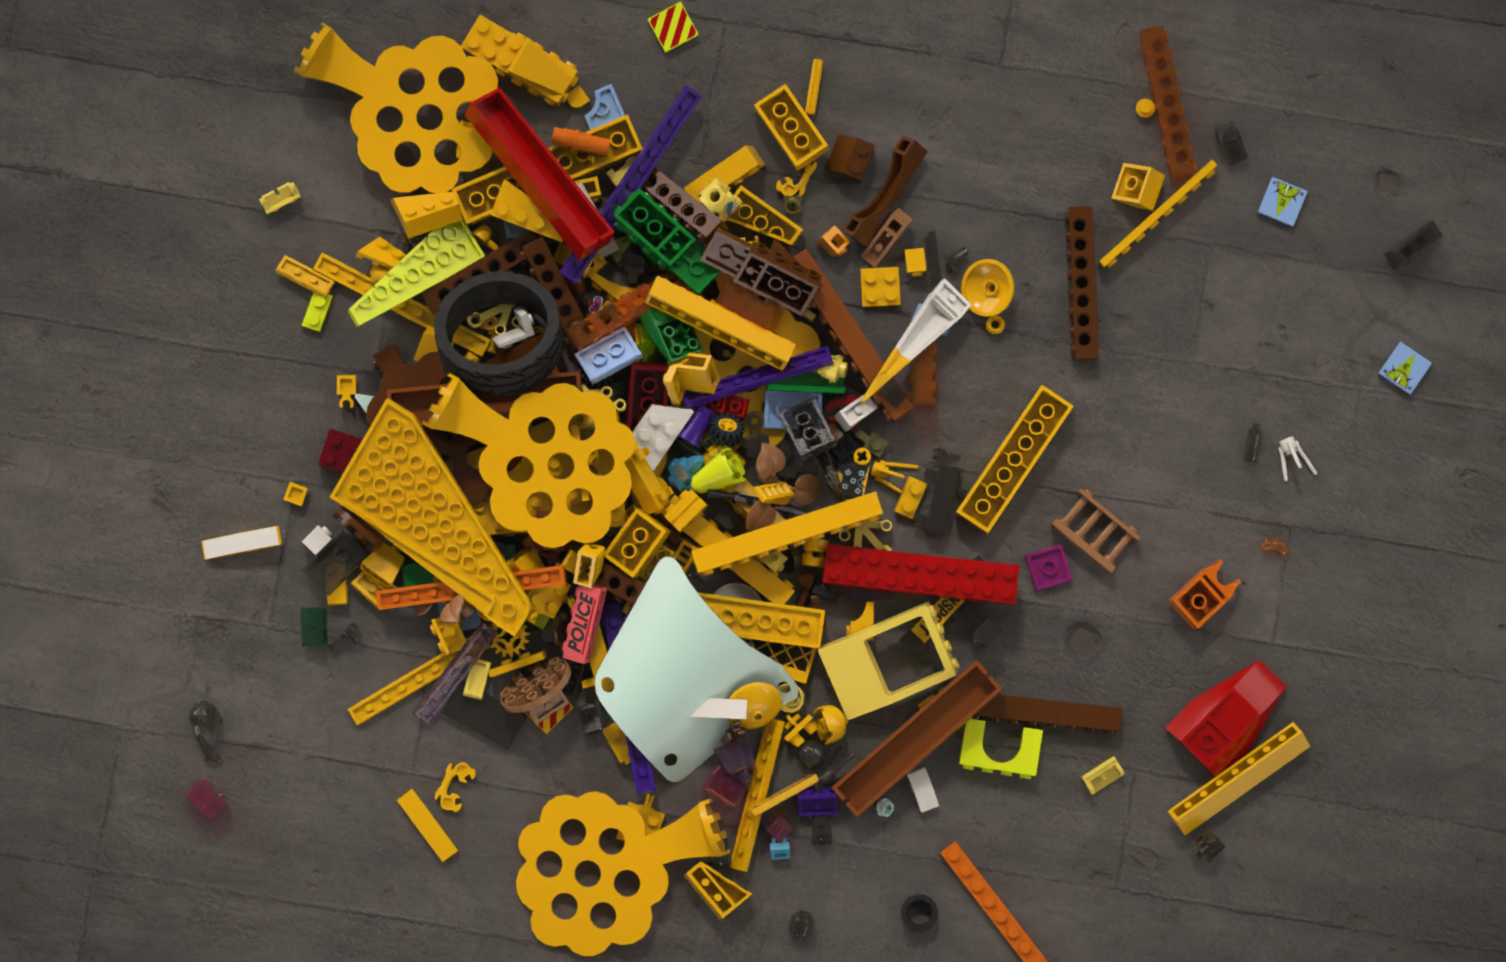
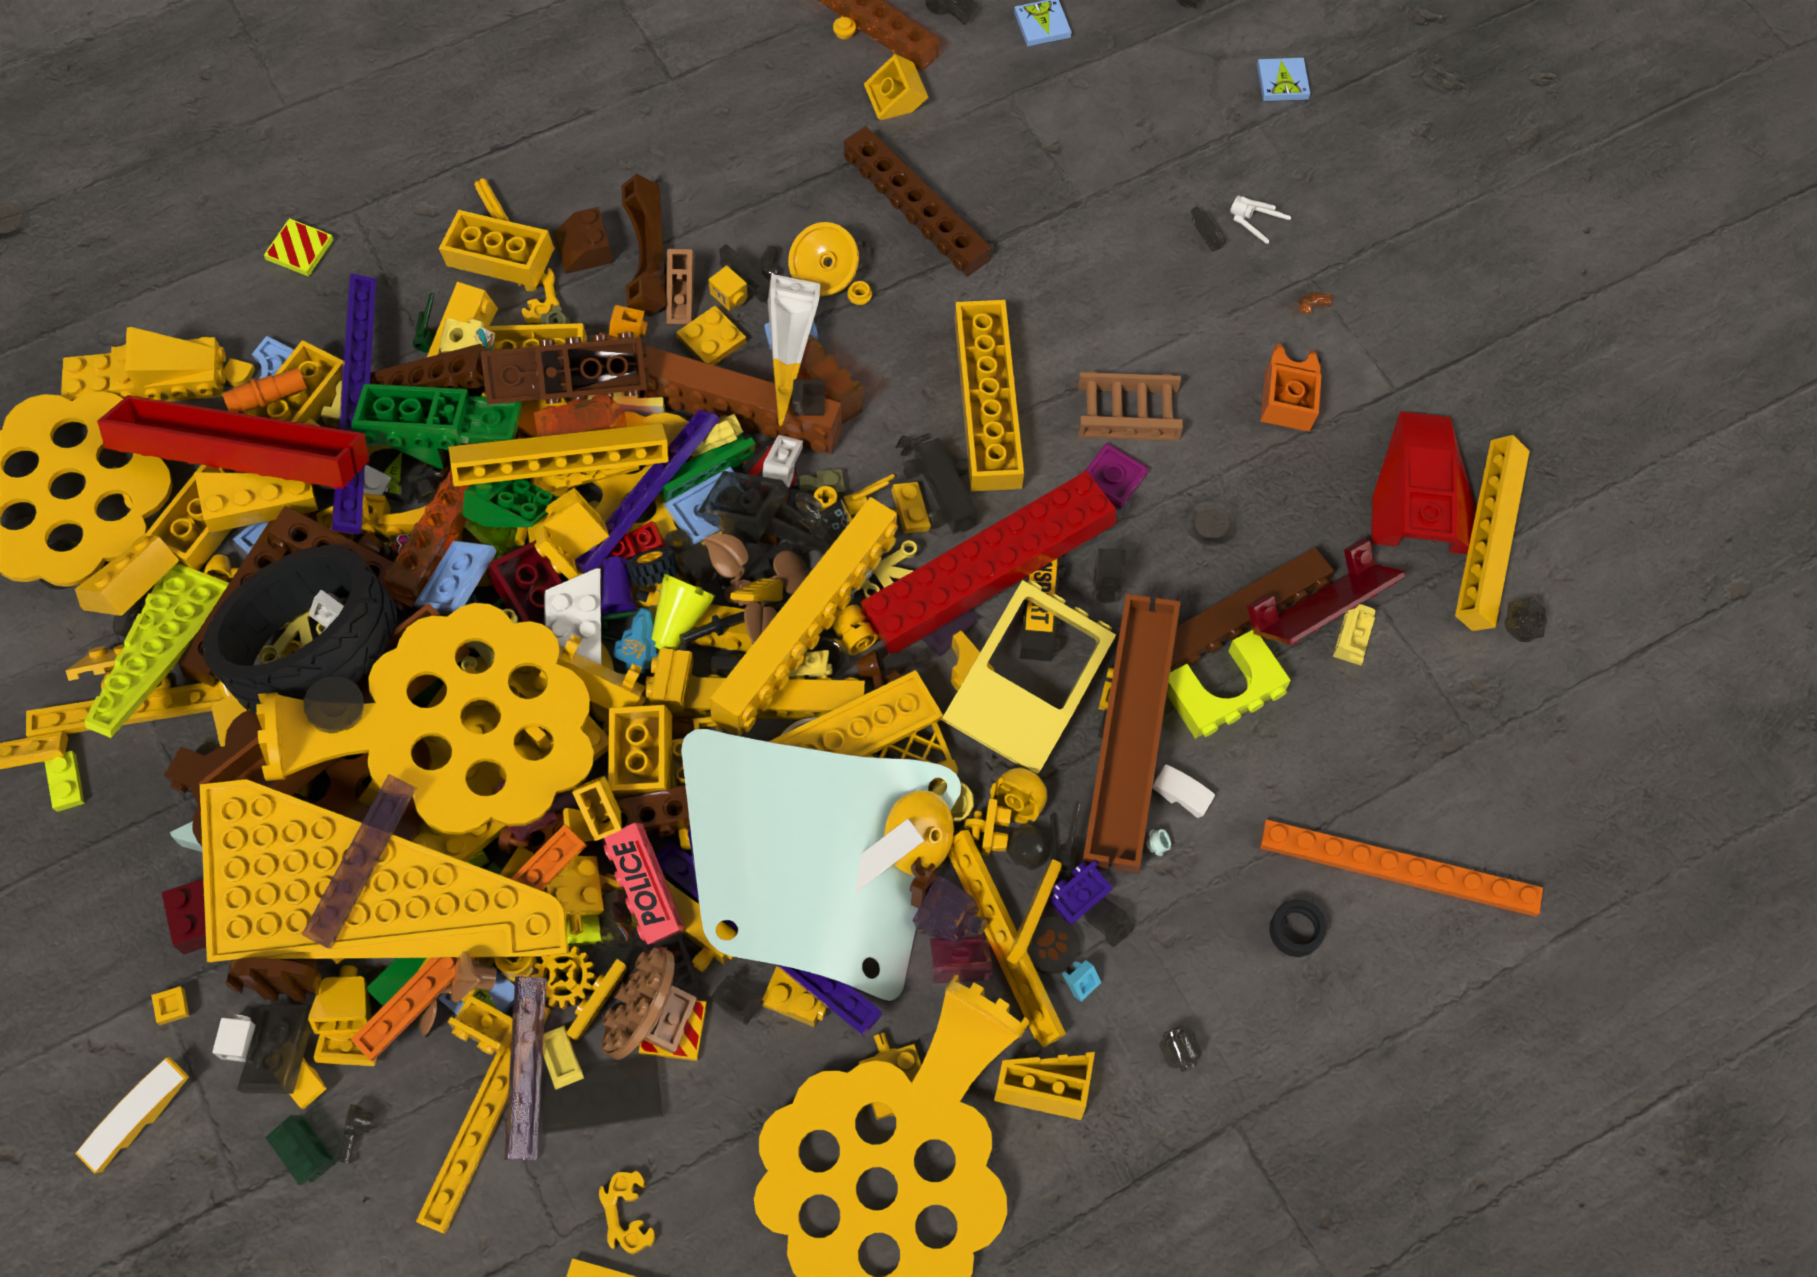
camera: 40 degrees left, 20 degrees down
(346, 387) = (157, 840): yellow plate -> none
(442, 506) = (359, 861): none -> tile
(485, 407) = (333, 704): none -> clear smoke tile
(705, 158) = (424, 335): none -> dark green plant
(779, 828) = (1063, 951): clear pink tile -> none
(1098, 748) = (1326, 605): none -> dark red bracket
(1152, 221) = (935, 107): yellow plate -> none

